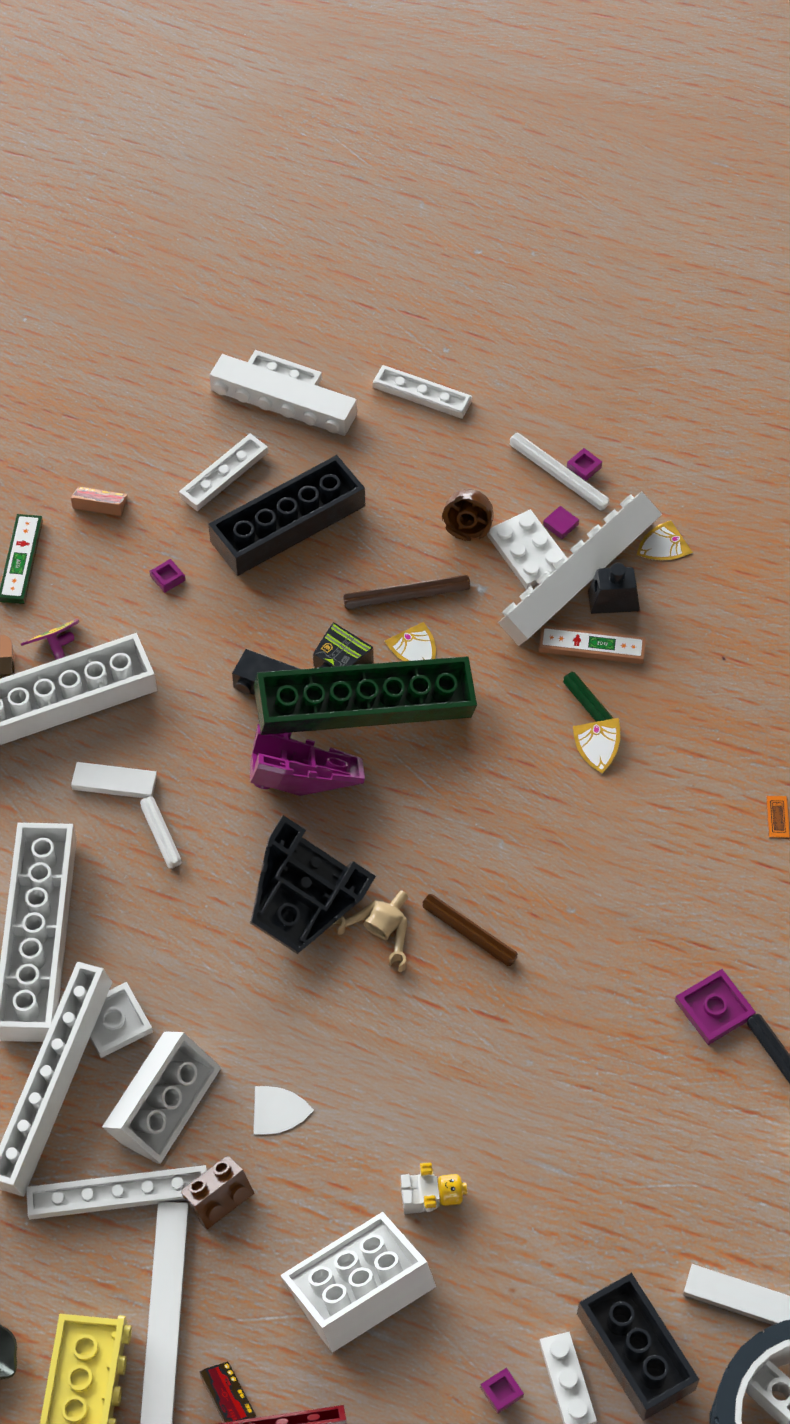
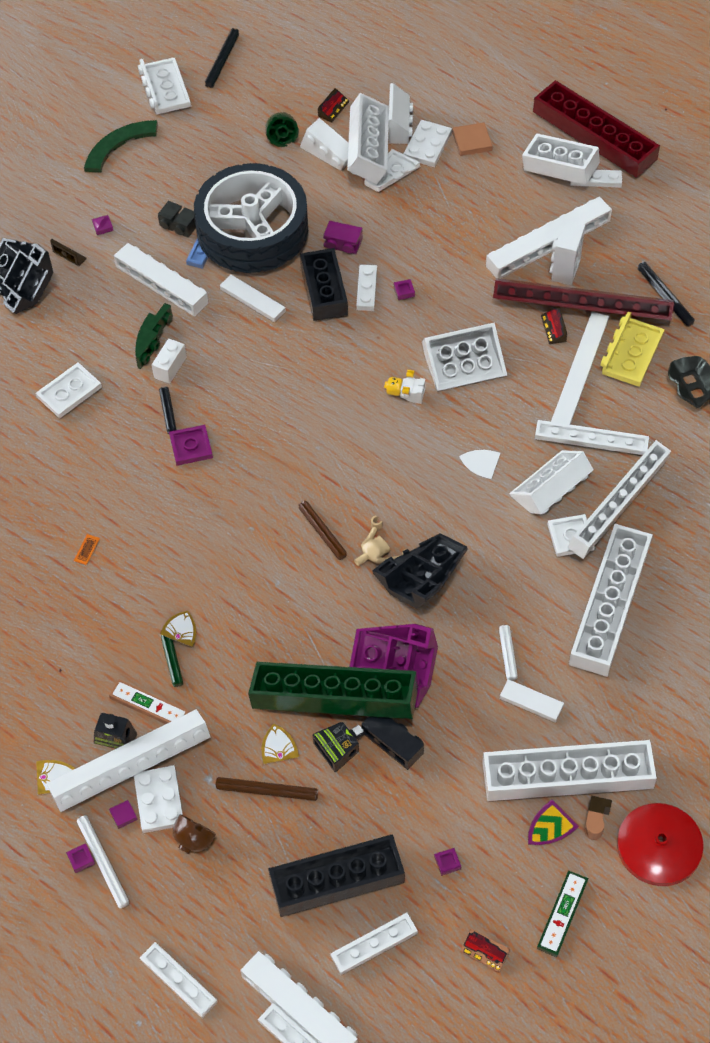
camera: 160 degrees left, 0 degrees up
(218, 1191) = (533, 419): reddish brown bracket -> none

